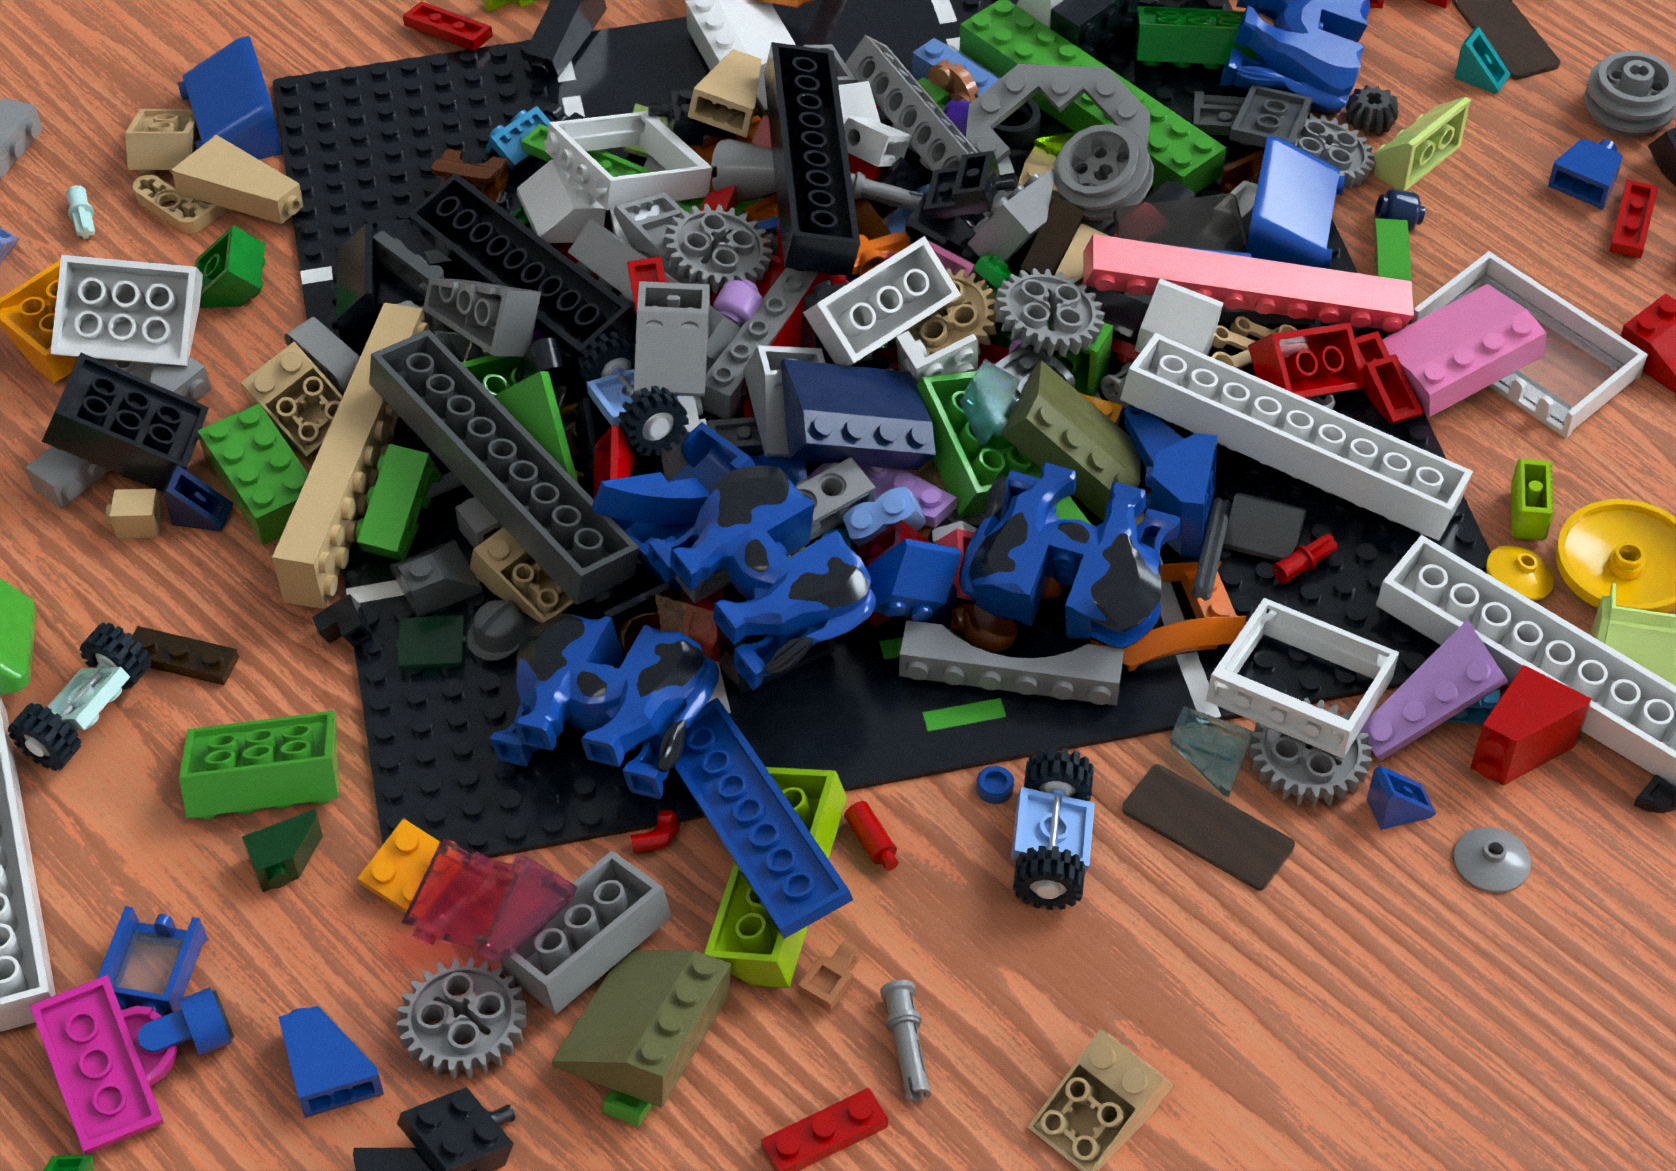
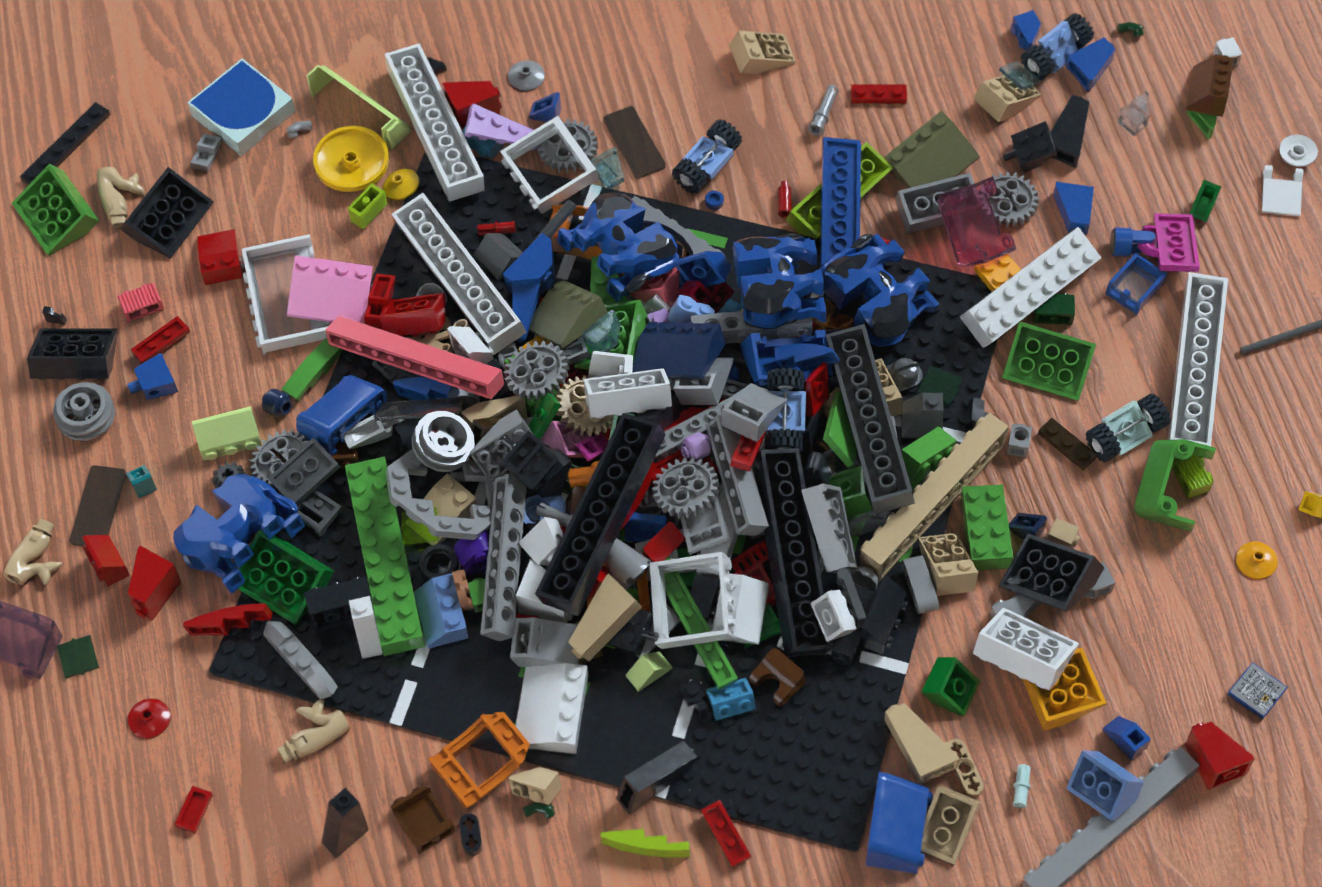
camera: 150 degrees left, 10 degrees up
(261, 616) = (1019, 447): none -> light grey brick
(338, 848) = (1030, 287): none -> white brick
(416, 214) = (833, 615): none -> white slope

